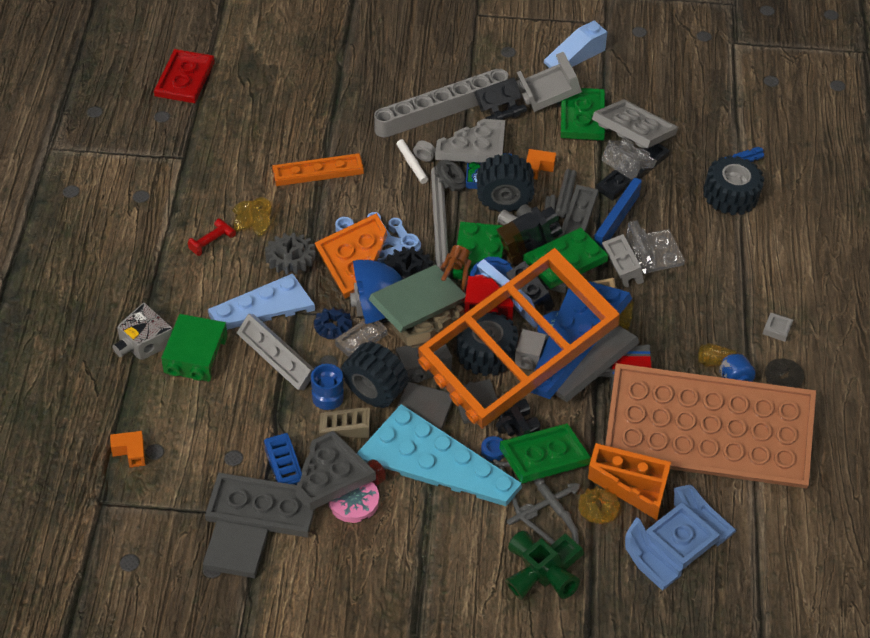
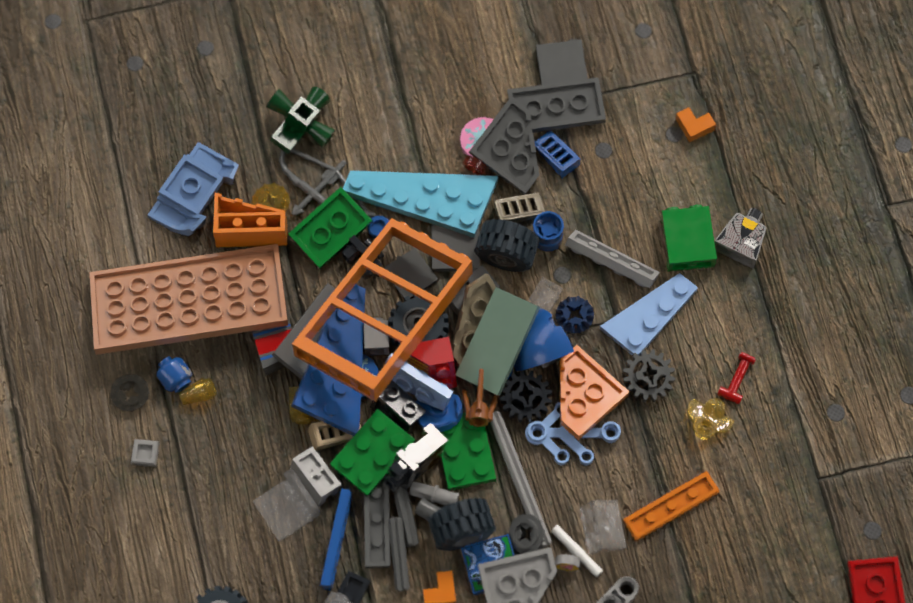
camera: 165 degrees right, 20 degrees up
(383, 166) = (602, 526): none -> clear bracket

